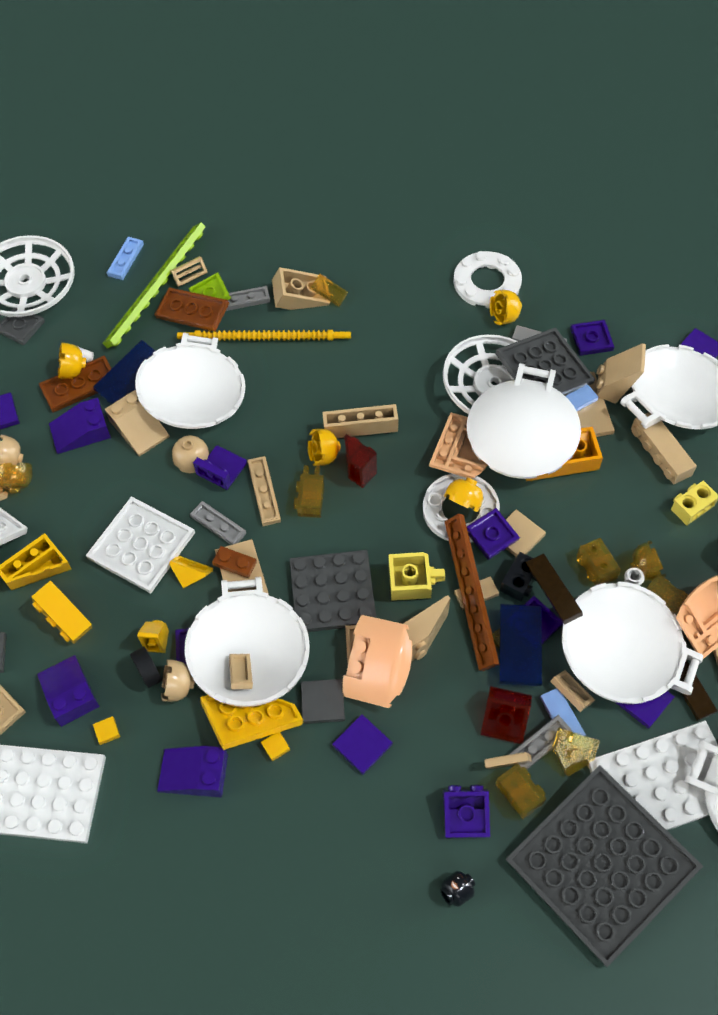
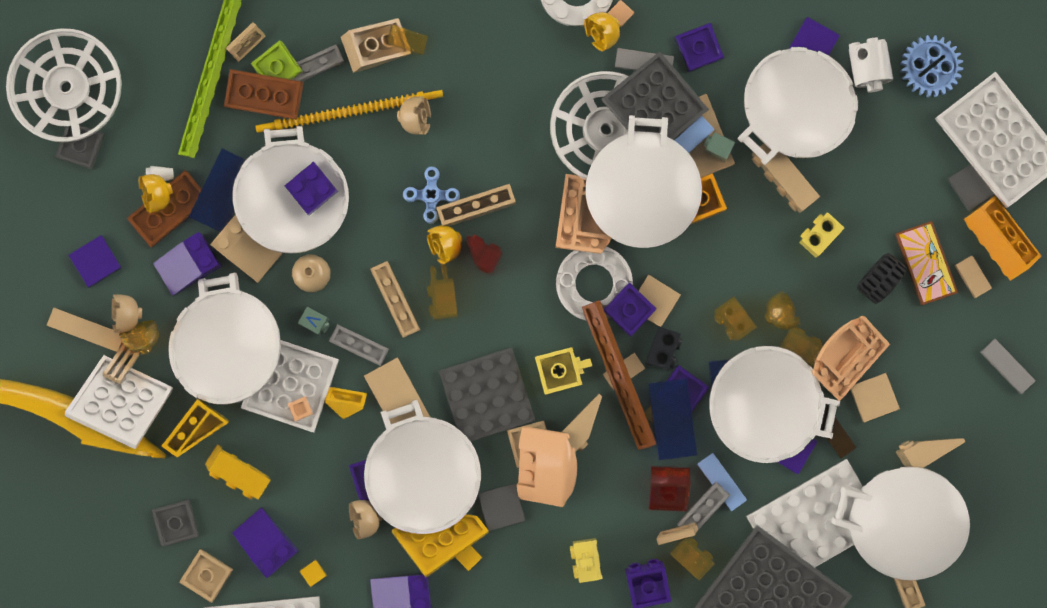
camera: 10 degrees left, 25 degrees up
(88, 494) = (224, 343): none -> white dish
(125, 258) = (167, 33): light blue tile -> none
(143, 565) = (300, 408): none -> light nougat tile
(146, 667) = (333, 511): black tyre -> none
(154, 636) = (331, 477): yellow slope -> none
(180, 493) = (314, 321): none -> sand green brick
(211, 384) = (311, 188): none -> dark purple plate
(220, 467) = (346, 282): dark purple bracket -> none
(234, 562) = (387, 387): dark orange plate -> none
(240, 671) = (421, 497): tan tile -> none
(317, 406) = (431, 203): none -> light blue gear
(321, 343) = (414, 115): none -> tan cylinder
(362, 744) = (545, 540): dark purple tile -> none
(403, 768) = (587, 560): none -> light yellow hinge
(465, 493) = (596, 276): yellow cylinder -> none
(527, 301) = (621, 12): none -> light nougat tile
(554, 589) = (696, 366): dark brown tile -> none
(572, 690) = (724, 456): tan tile -> none
(574, 750) = (734, 510): clear yellow plate -> none
(601, 410) = (718, 146): none -> sand green brick
(620, 373) = (733, 102): tan slope -> none
(634, 576) = (774, 333): white cone -> none

